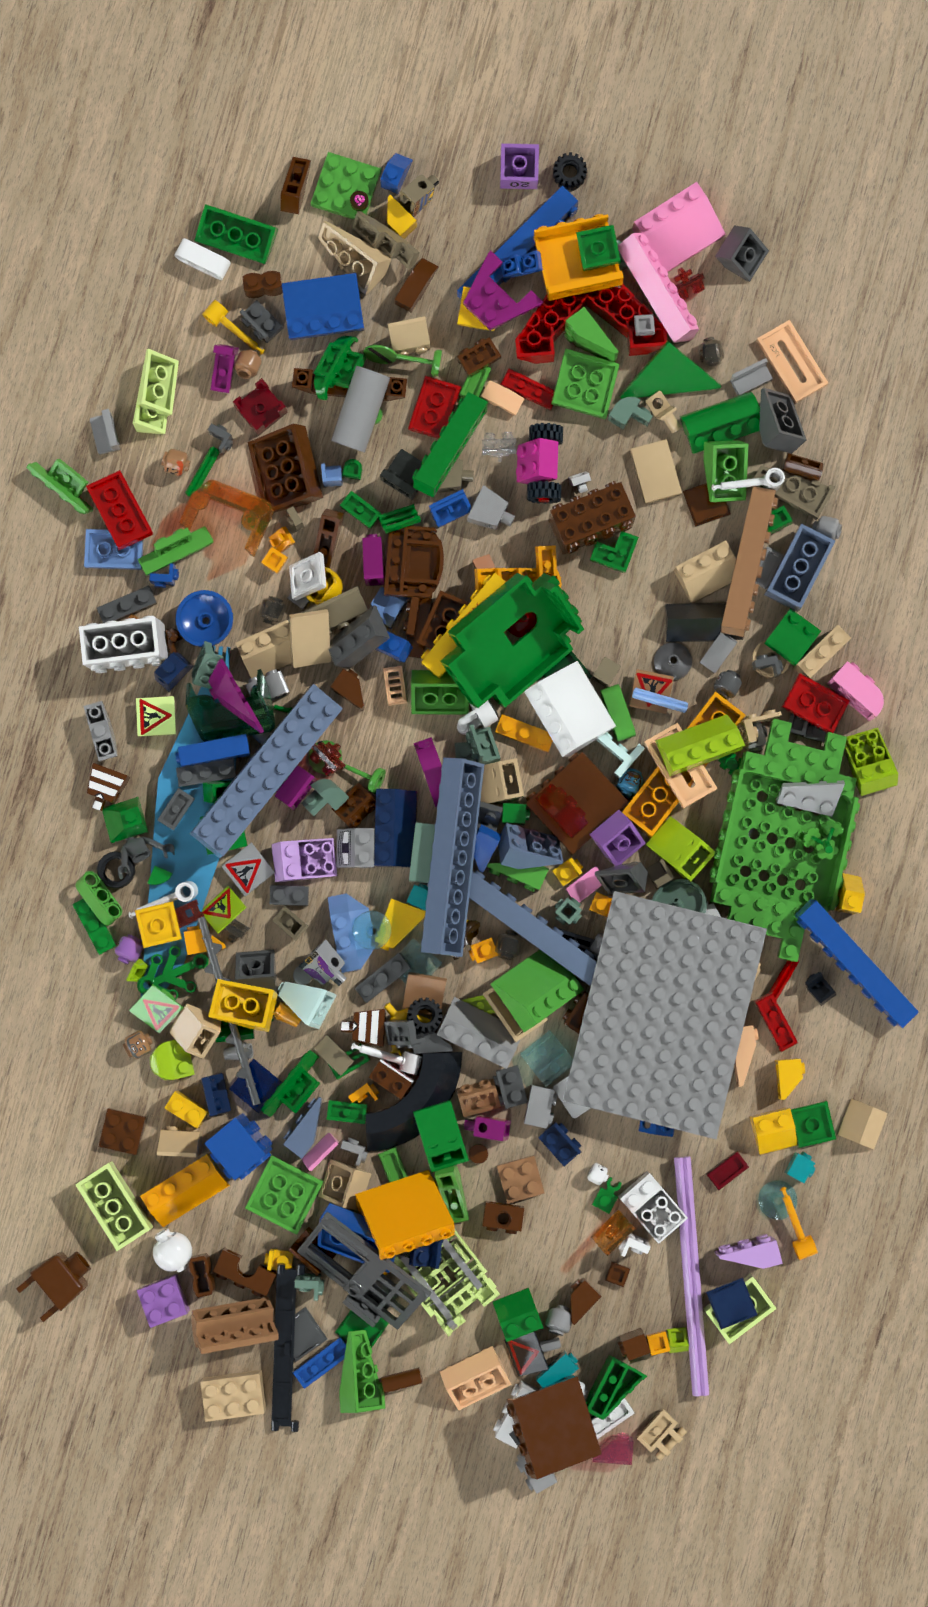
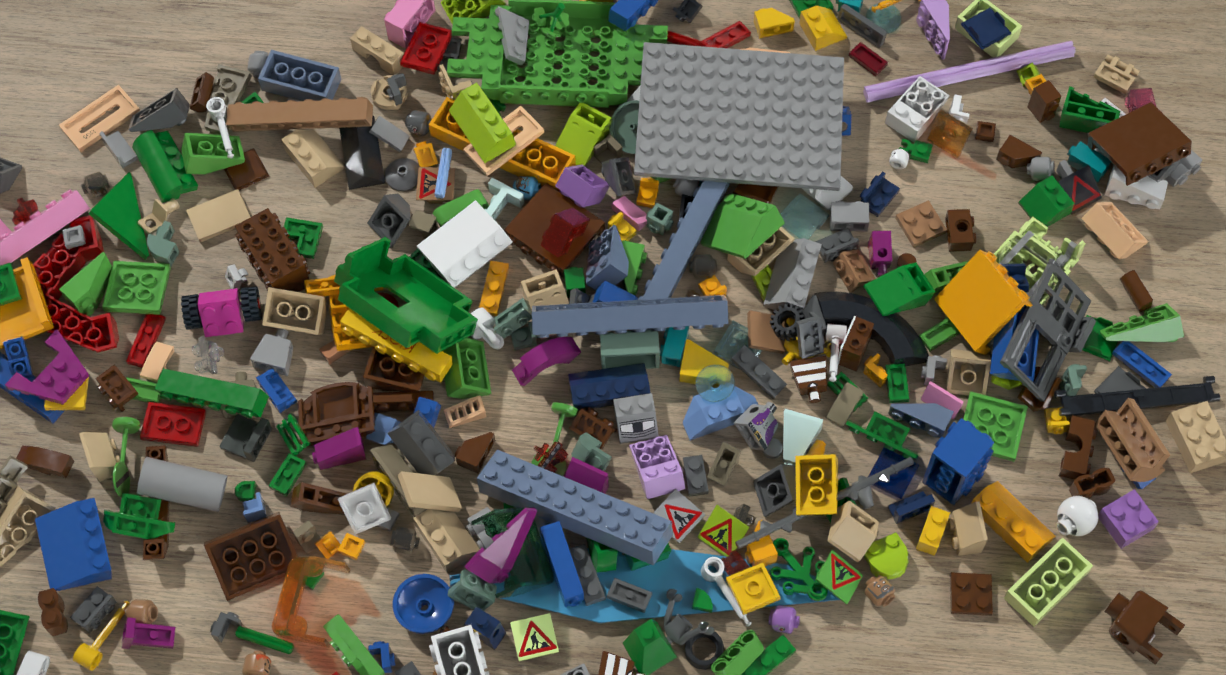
camera: 100 degrees left, 20 degrees down
(138, 970) = (804, 606): lime slope -> none
(260, 407) = (188, 592): dark red panel -> none
(523, 532) = (295, 311): none -> tan slope
(619, 642) = (390, 217): none -> dark grey slope
(688, 685) = (425, 154): none -> light orange bracket
(767, 1173) = (862, 25): none -> dark grey plate
(792, 637) = (366, 74): green slope -> none

